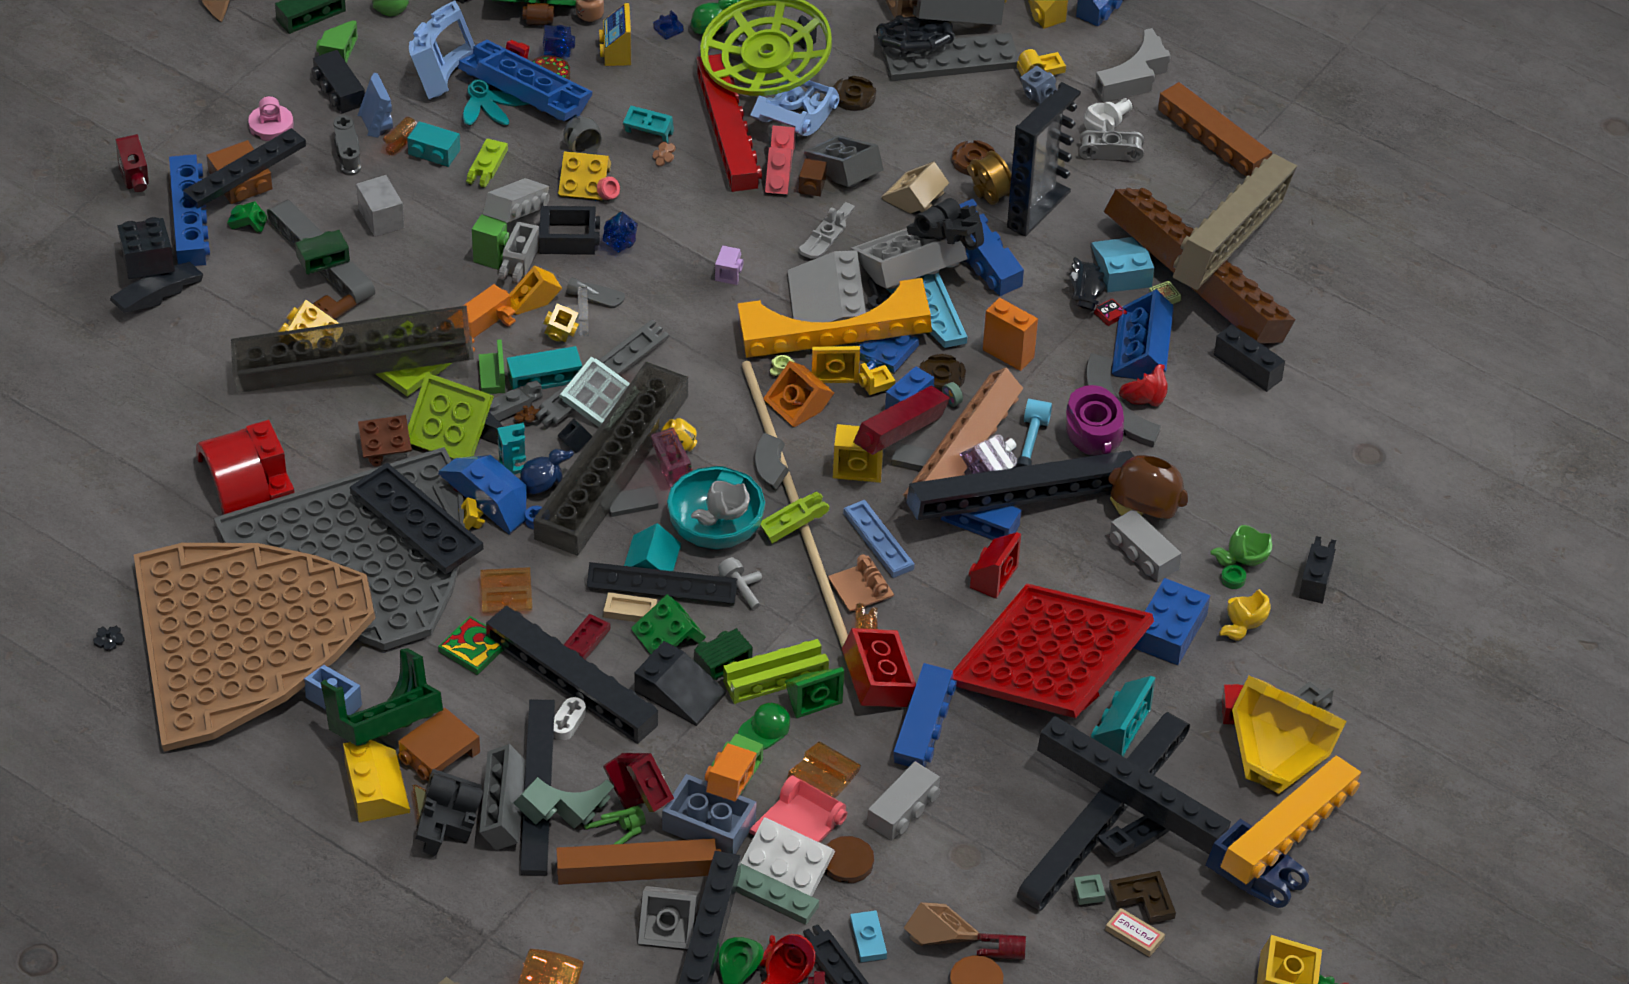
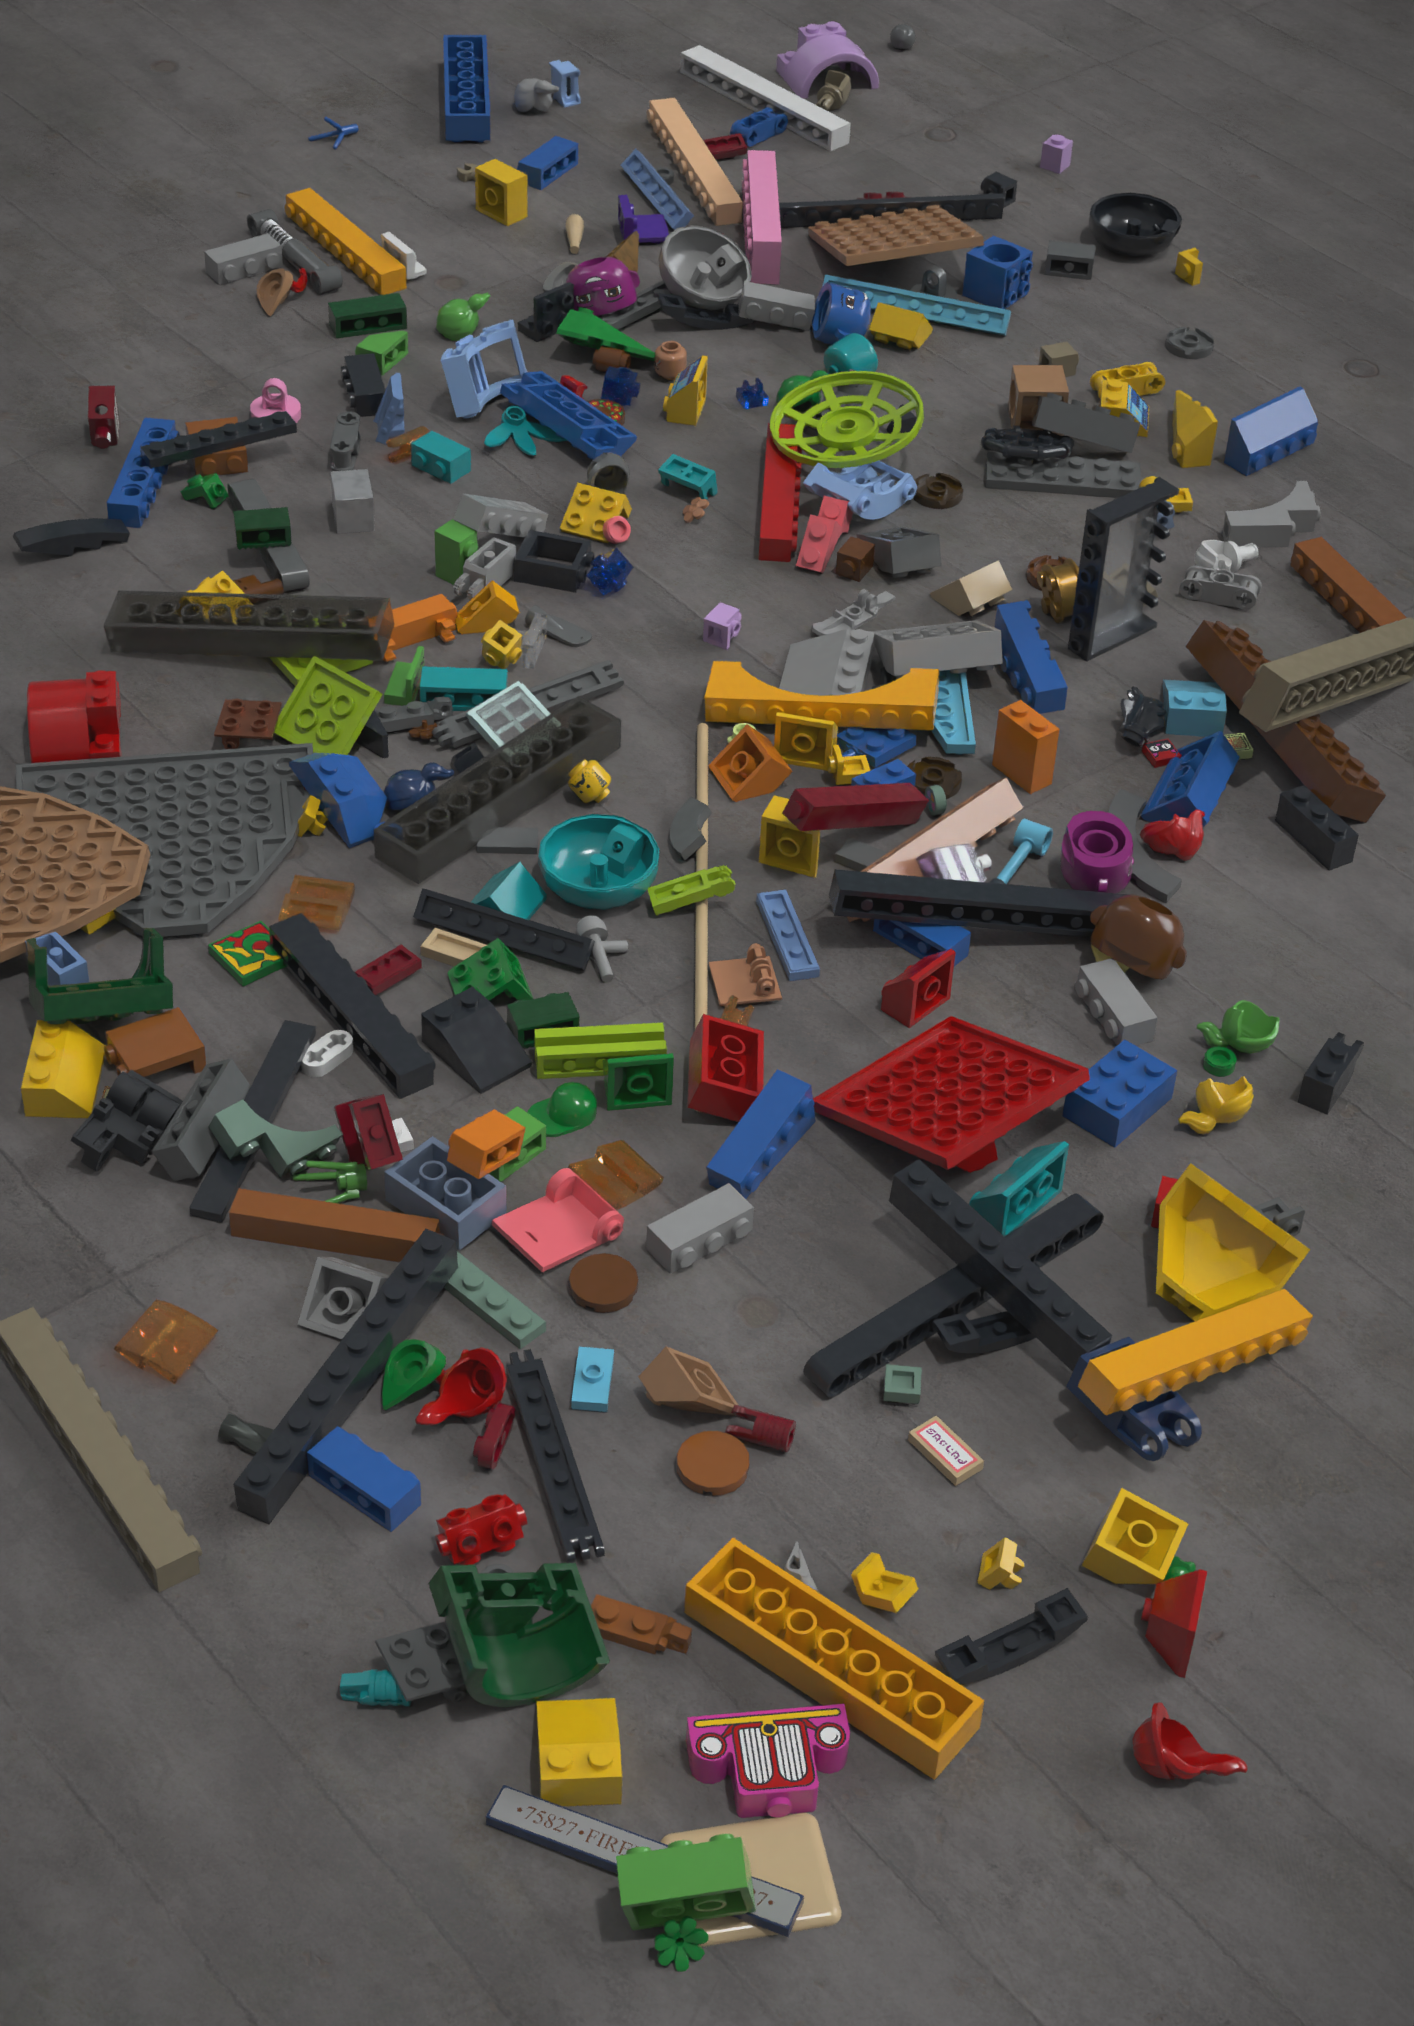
camera: 15 degrees right, 5 degrees down
(146, 247) = (74, 493): black brick -> none
(416, 518) = (242, 806): black plate -> none
(487, 161) = (497, 482): lime hinge -> none
(511, 446) = (386, 752): teal hinge -> none
(671, 455) = (568, 793): clear pink slope -> none
(723, 502) = (601, 850): light grey hair -> none
(788, 856) = (525, 1261): white plate -> none
(949, 222) = (989, 615): black plate -> none
(1144, 889) = (979, 1400): dark brown plate -> none

